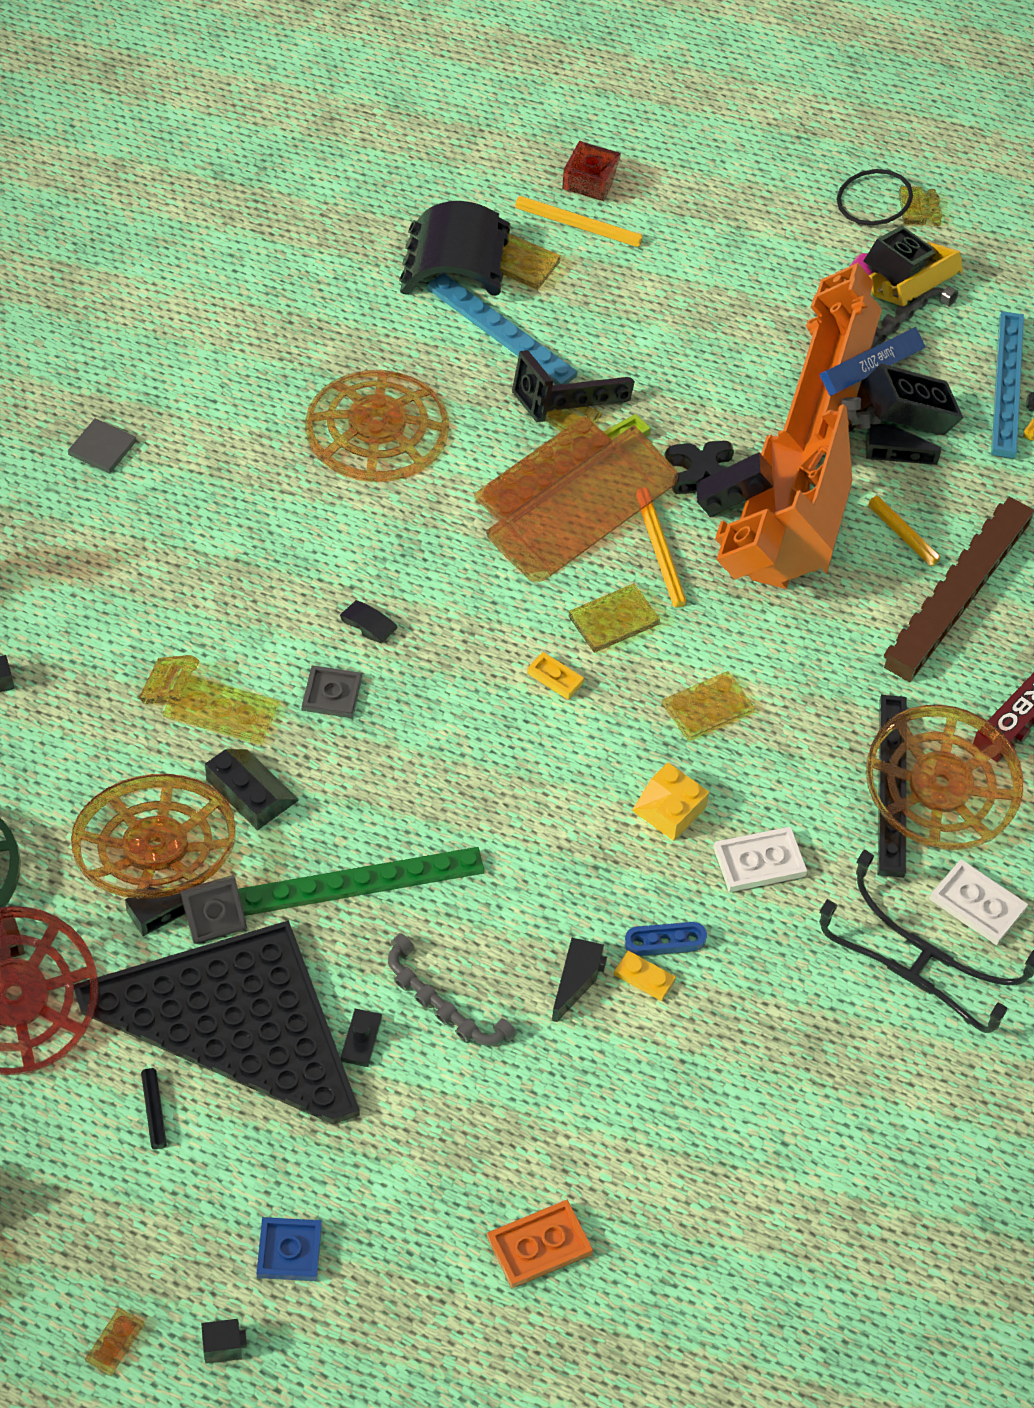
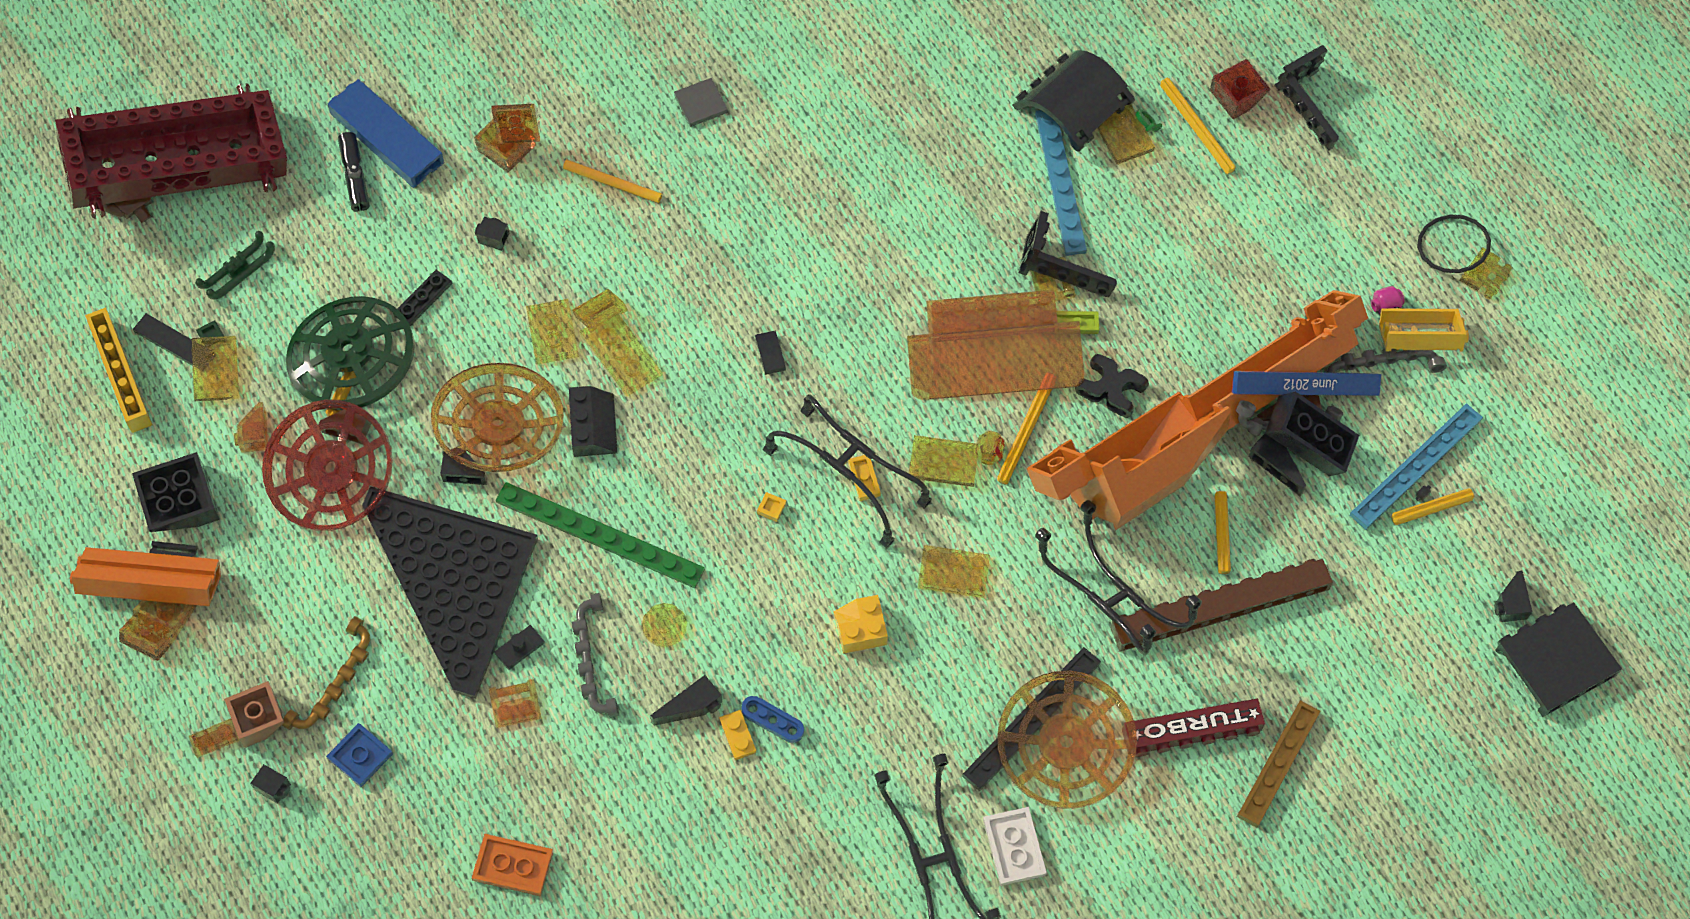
camera: 40 degrees right, 10 degrees up
(75, 562) = (612, 181): none -> yellow piece
(134, 730) = (552, 331): none -> clear yellow tile
(145, 1282) = (255, 713): none -> nougat slope
(153, 1108) = (355, 603): black axle -> none
(205, 1207) = (333, 690): none -> pearl gold bar
(213, 909) = (494, 494): dark grey tile -> none
(332, 691) = (703, 388): dark grey tile -> none
(376, 431) = (904, 211): clear orange dish -> none
(410, 1099) = (516, 710): none -> clear orange plate
(493, 754) = (771, 507): none -> yellow plate
(493, 925) = (666, 632): none -> clear yellow tile
(538, 663) = (839, 464): none -> black bar
(543, 243) = (1149, 127): none -> green piece
(646, 580) = (990, 447): none -> clear yellow head
(654, 152) = (1289, 84): none -> black bracket
(734, 484) = (1113, 415): black brick -> none
(760, 859) = (887, 708): white plate -> none
(875, 625) = (1147, 631): none -> black bar
(899, 255) = (1417, 307): black slope -> none

